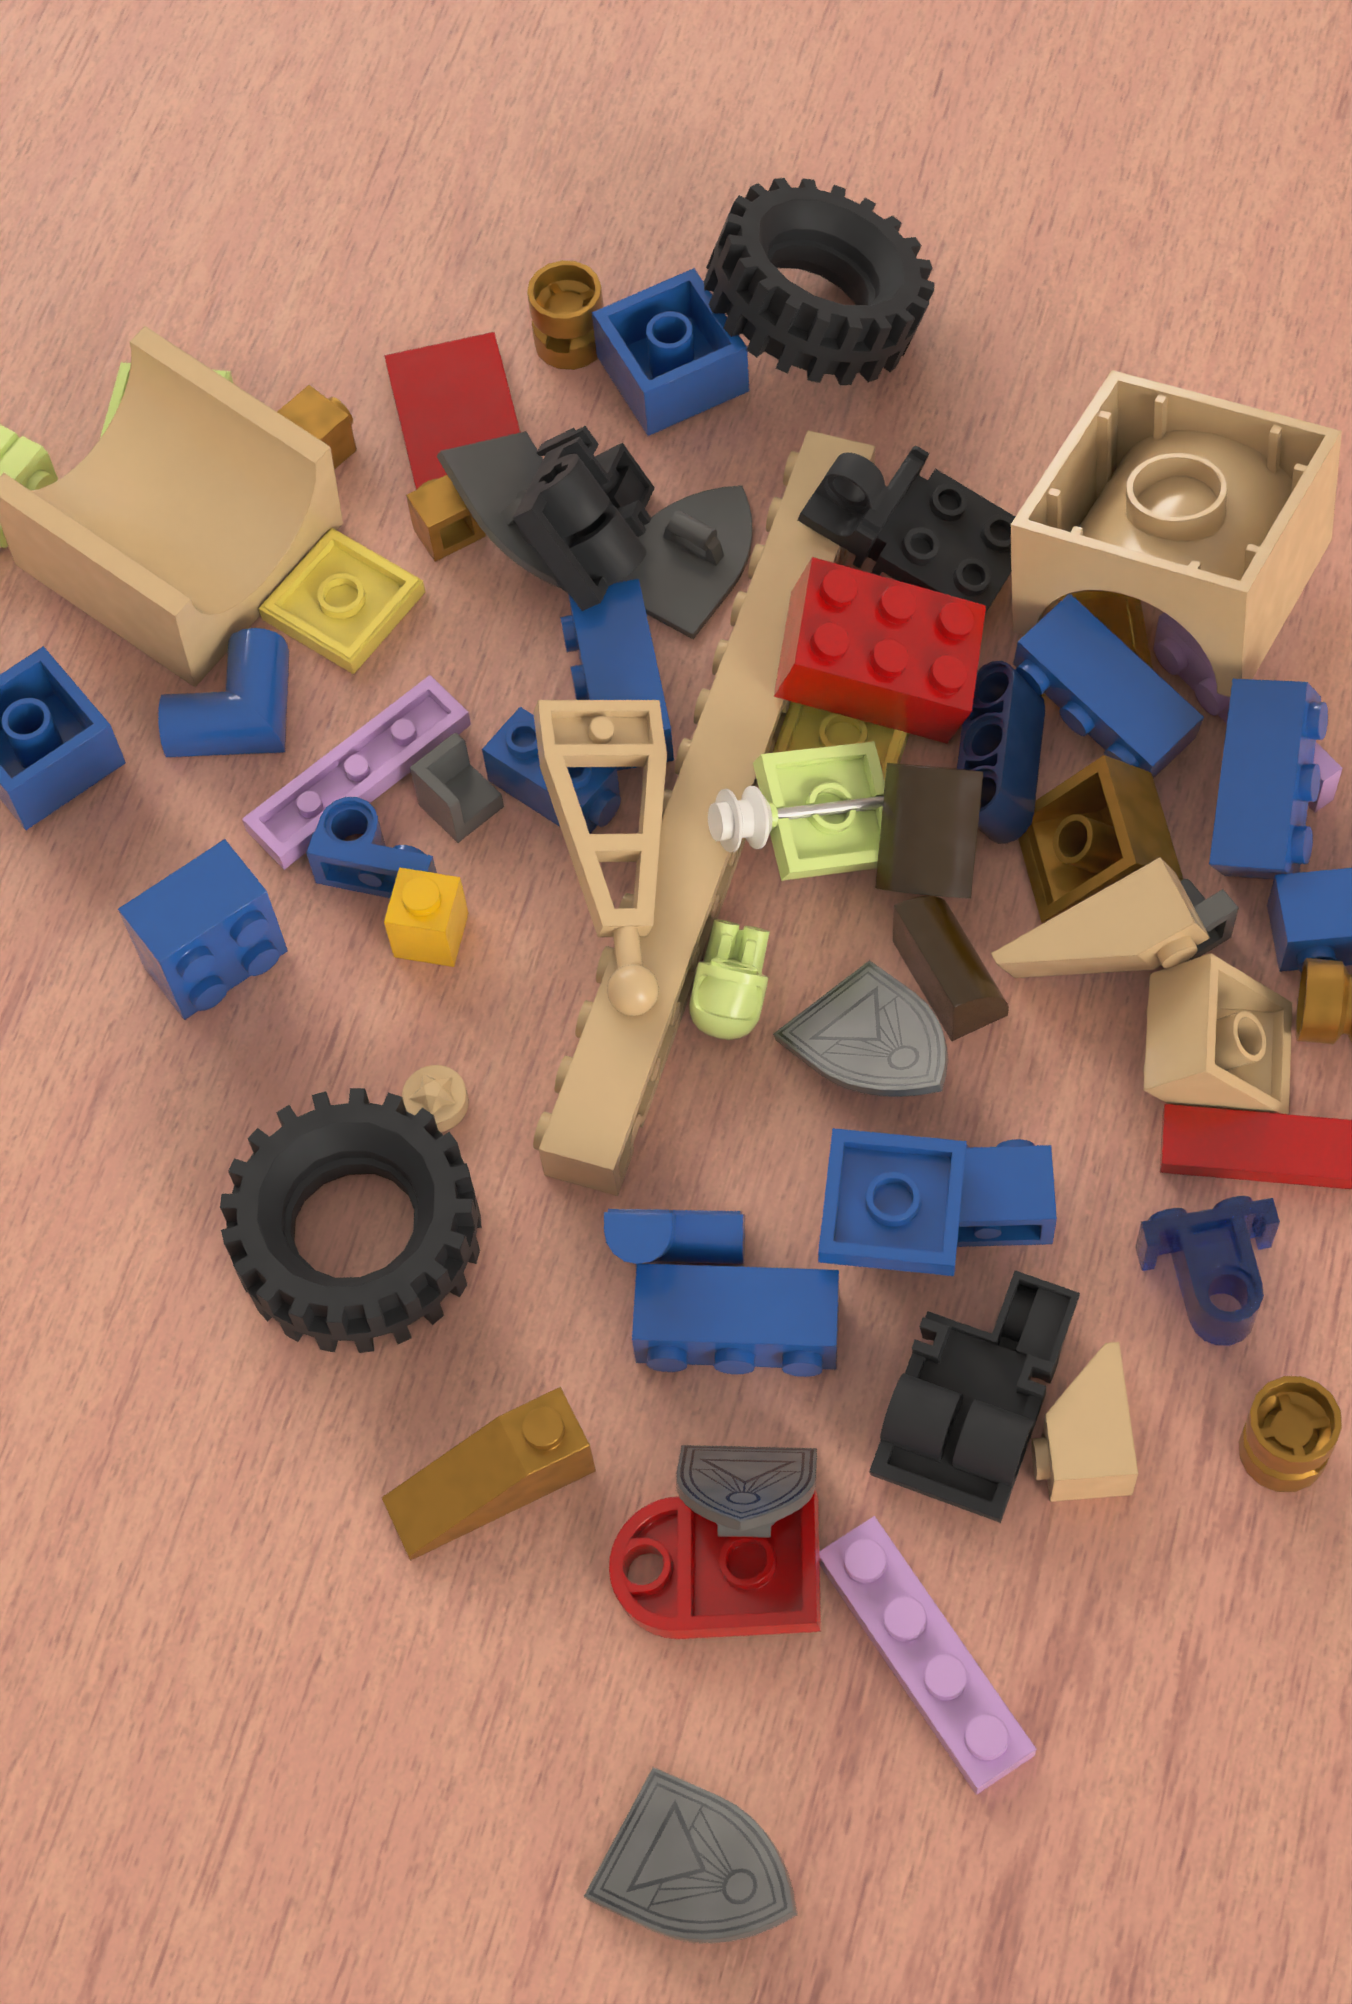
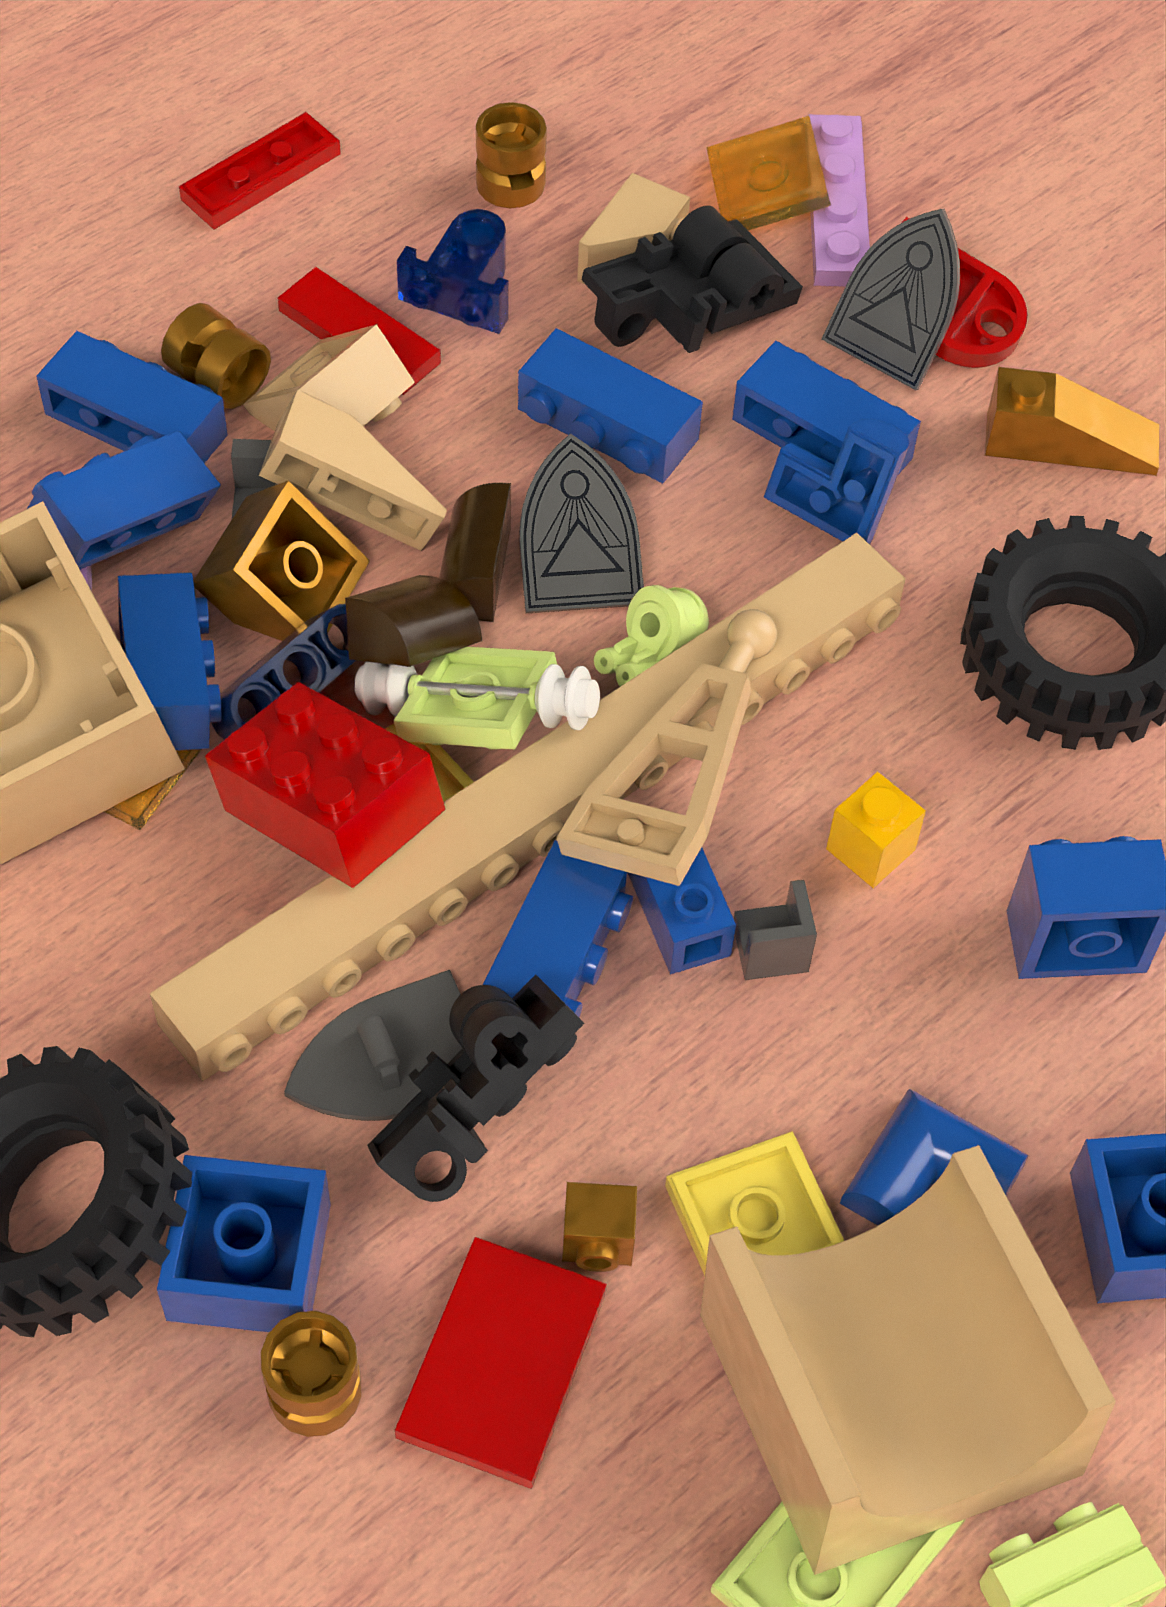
camera: 155 degrees left, 5 degrees down
(324, 419) = (665, 1420): pearl gold plate -> none
(357, 767) = (852, 1013): lavender plate -> none
(363, 863) = (897, 916): blue plate -> none
(439, 1092) = (953, 705): tan tile -> none
(492, 484) = (525, 1185): dark grey shield -> none
(693, 1867) = (1072, 162): dark grey shield -> none
(892, 1202) = (670, 378): blue plate -> none
(915, 527) = (181, 877): black plate -> none
(1011, 1612) = (769, 174): none -> clear yellow tile

